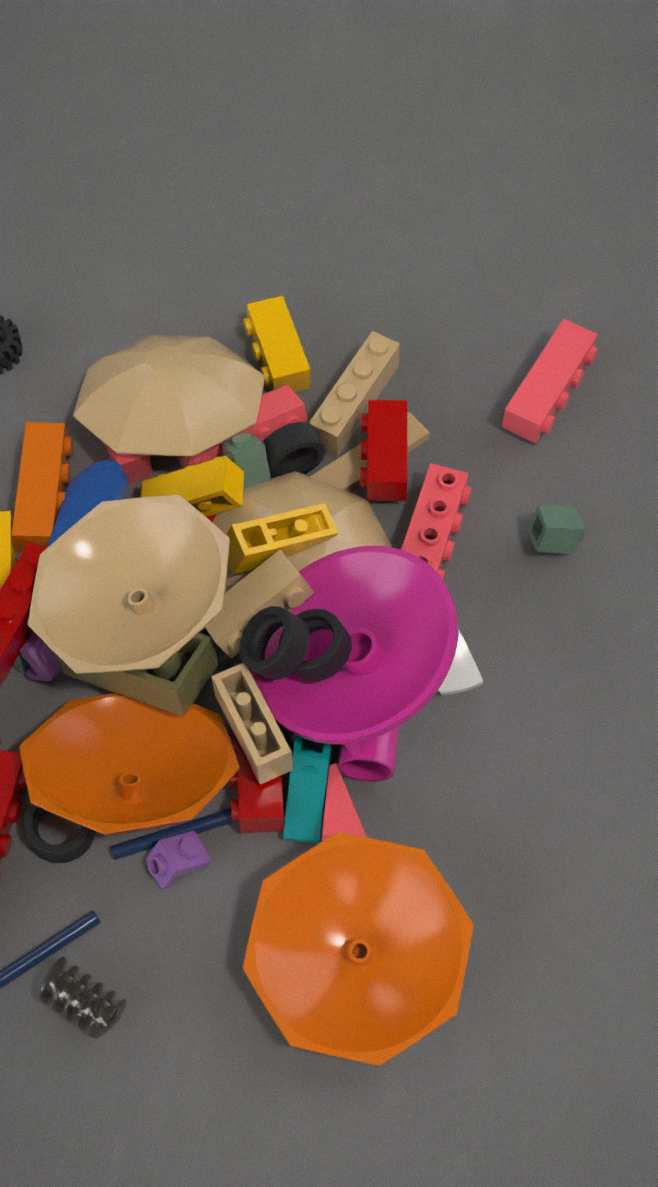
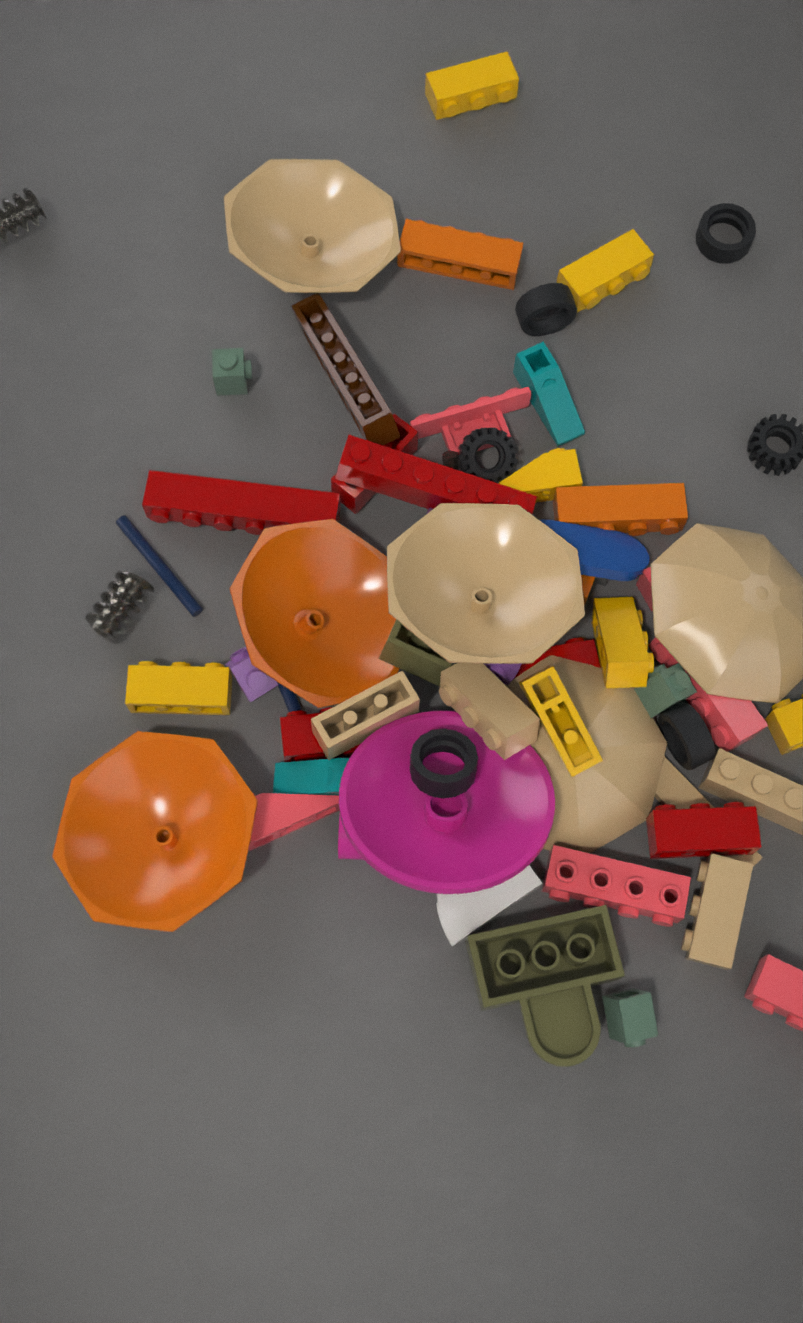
camera: 85 degrees right, 10 degrees up
(189, 934) = (179, 689): none -> yellow brick
(289, 653) = (437, 736): black tyre -> none
(461, 447) = (717, 911): none -> tan brick
(515, 589) = (550, 974): none -> olive brick

